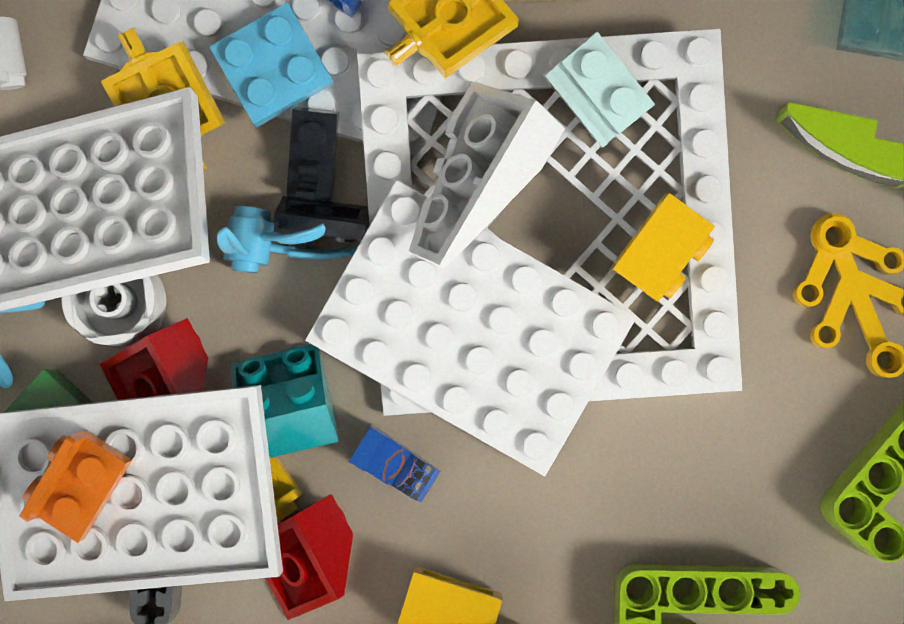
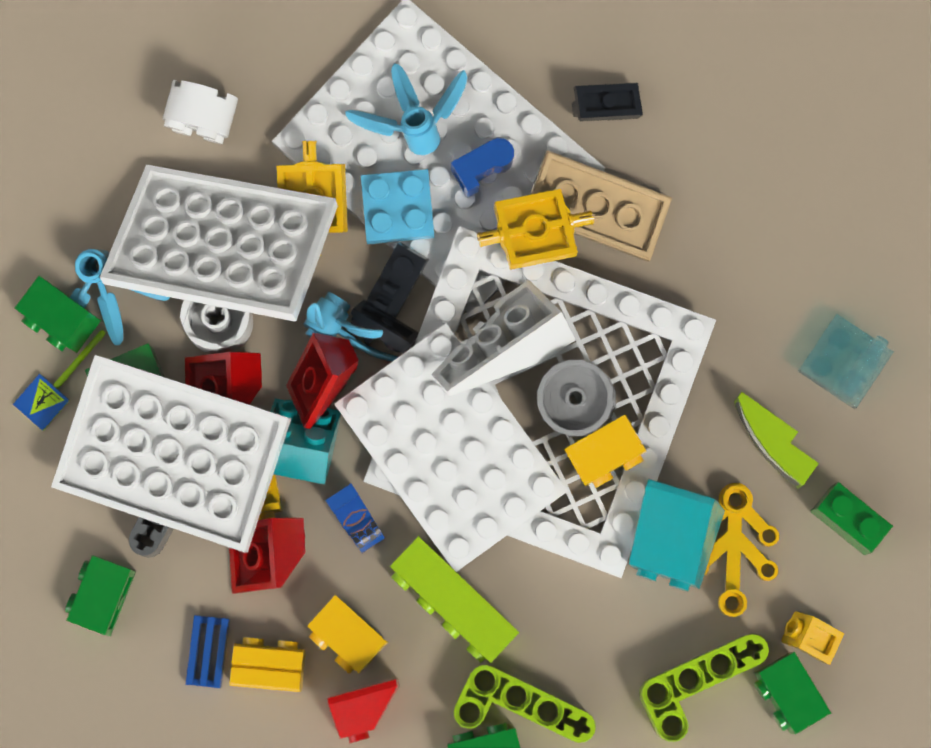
camera: 25 degrees right, 5 degrees down
(75, 484) = (138, 428): orange bracket -> none
(273, 312) = (320, 375): none -> red slope
(558, 509) = (454, 600): none -> lime brick
(599, 89) = (612, 324): light aqua plate -> none
(626, 207) = (558, 387): none -> light grey wheel
(789, 312) = (675, 535): none -> teal slope

